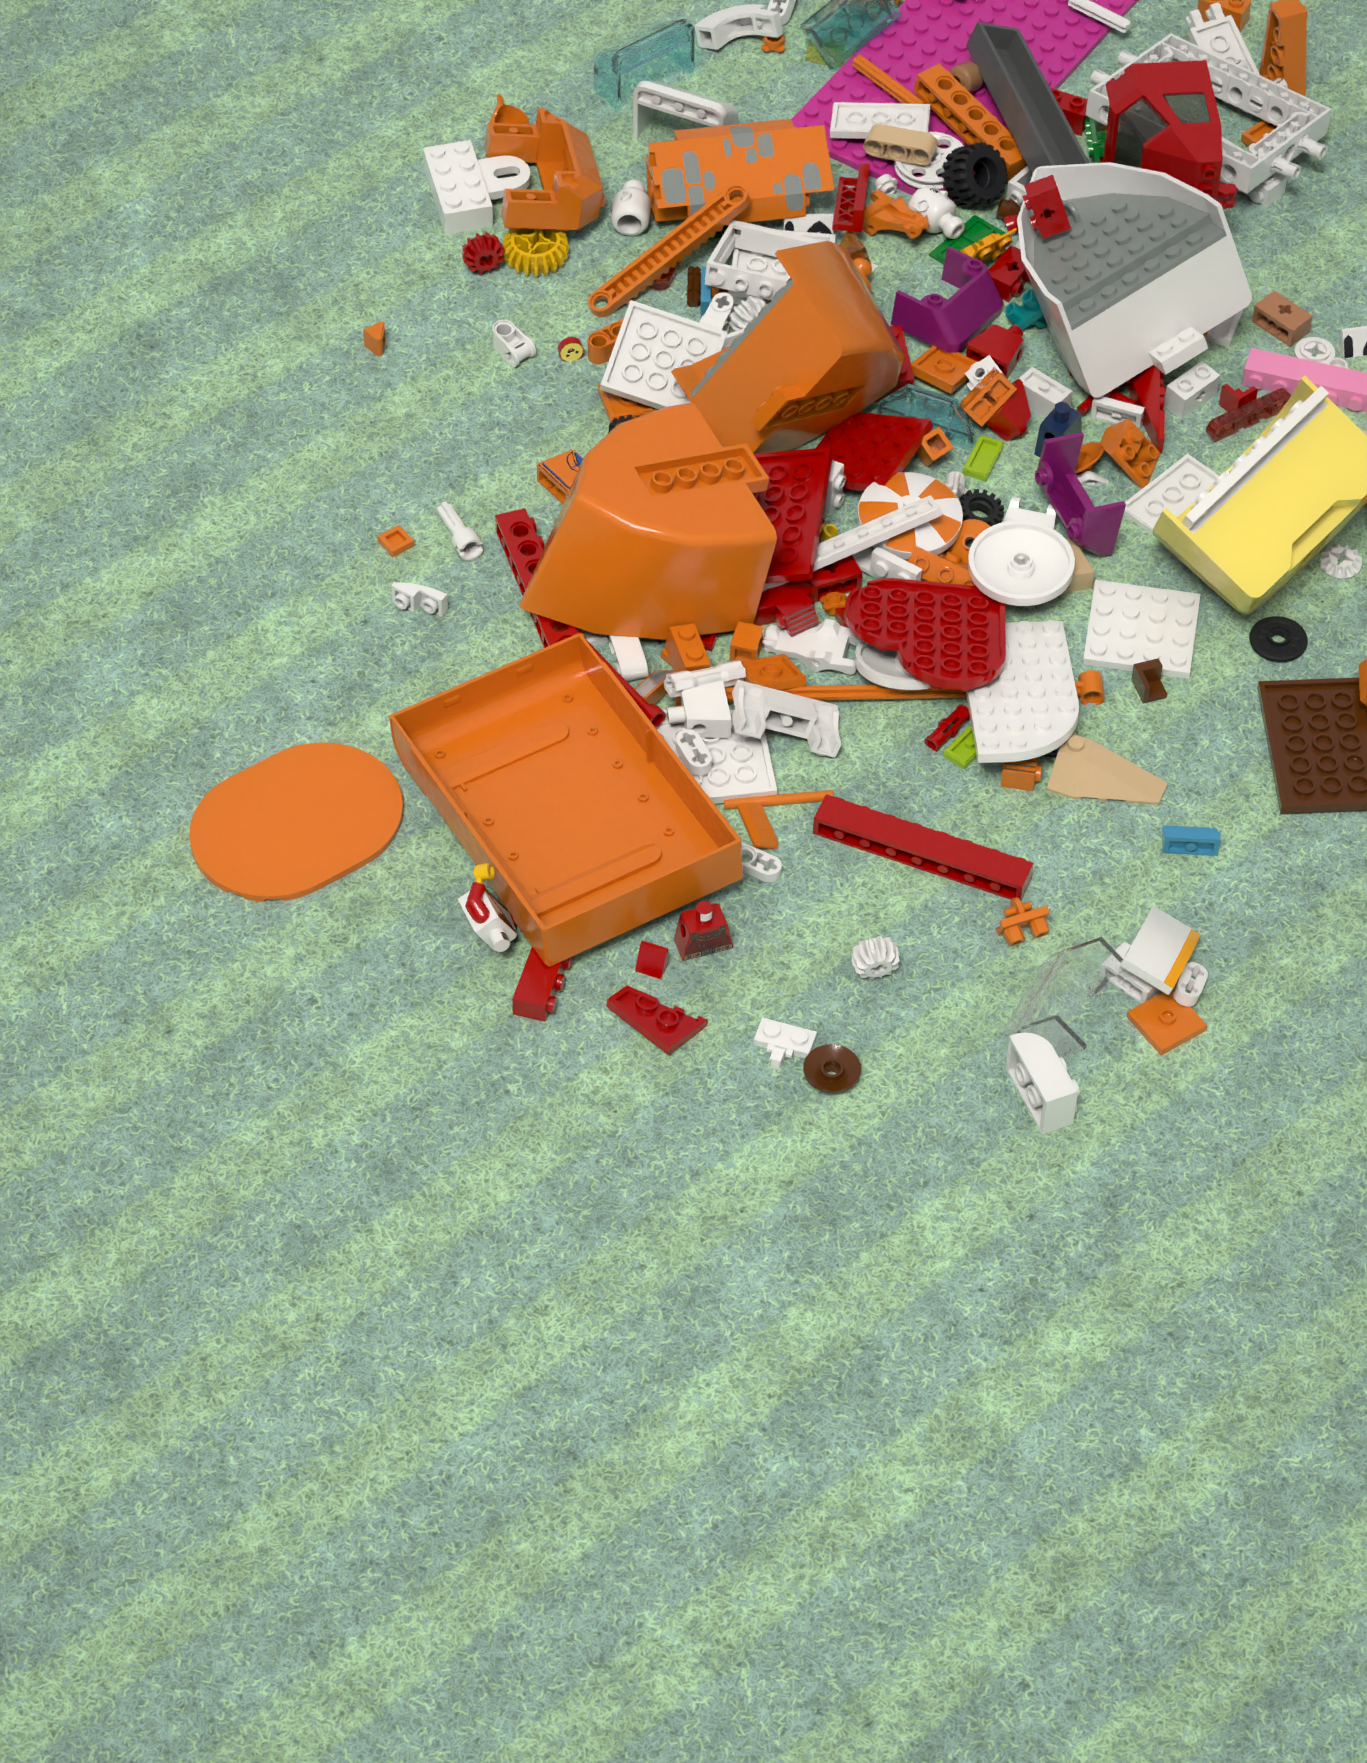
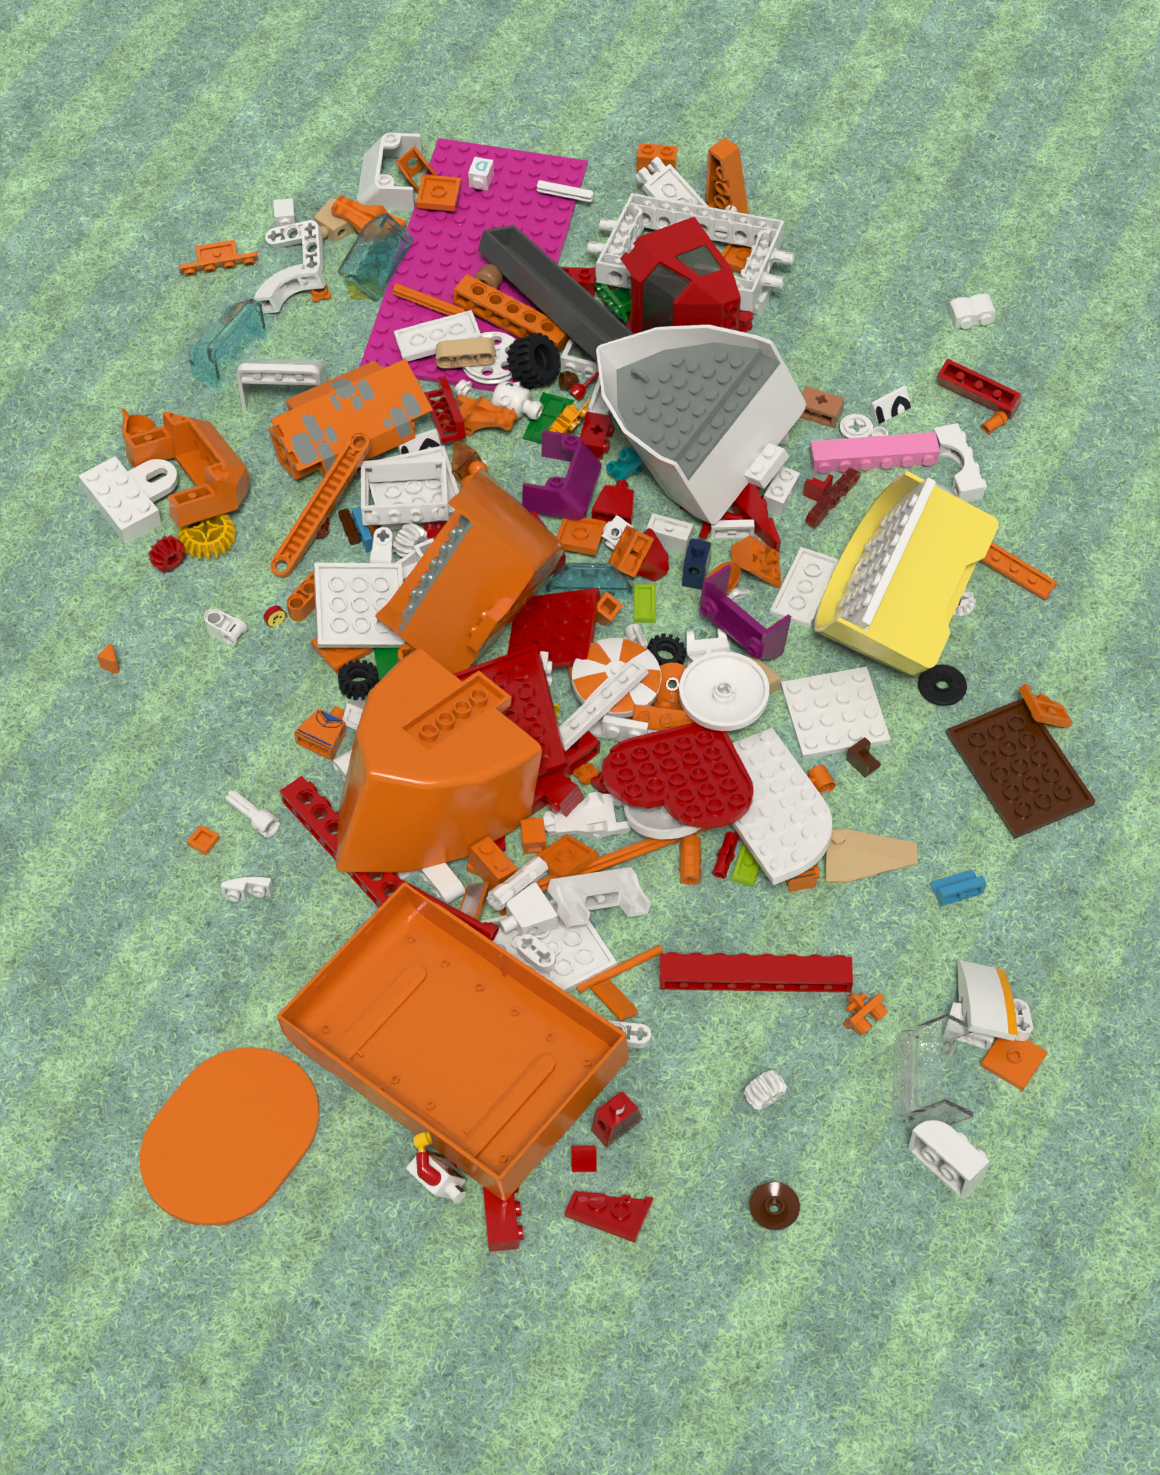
camera: 20 degrees left, 5 degrees up
(631, 209) = (270, 474): white piece -> none
(784, 1041) = (722, 1193): white hinge -> none
(906, 719) = (690, 860): none -> orange axle
(1047, 207) = (624, 380): red brick -> none

